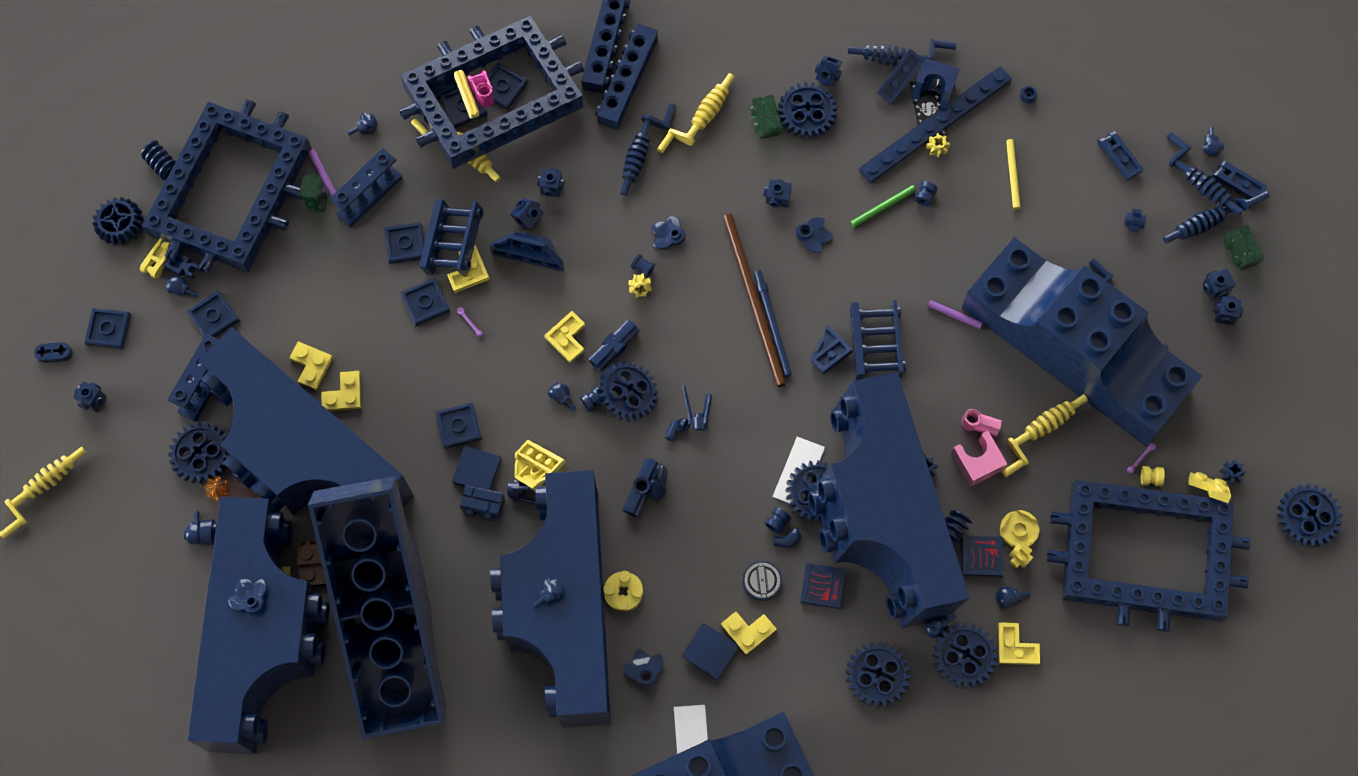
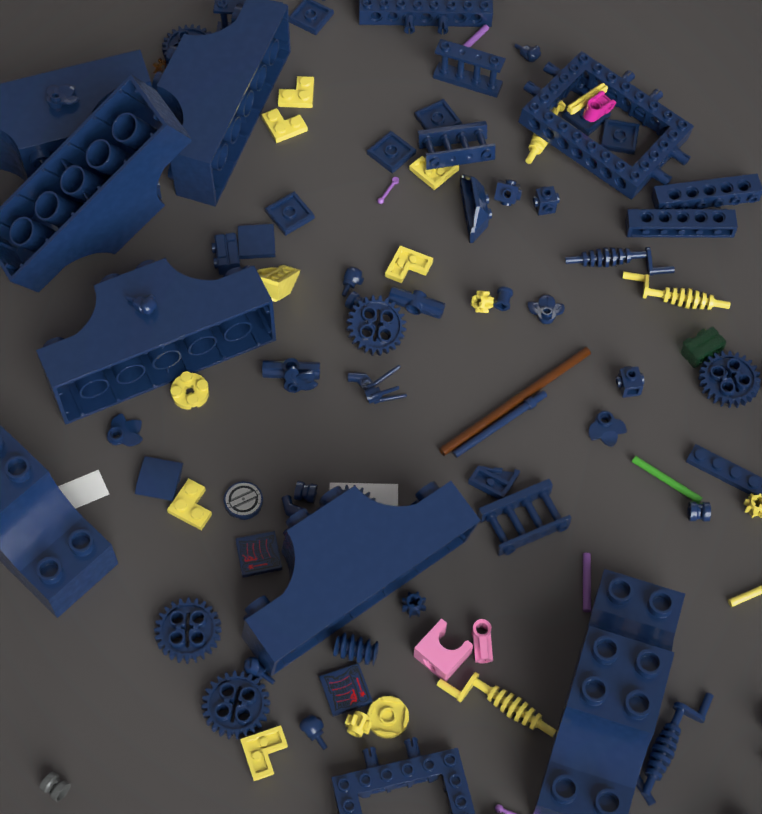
camera: 65 degrees right, 10 degrees down
(313, 193) = (447, 30): clear green brick -> none

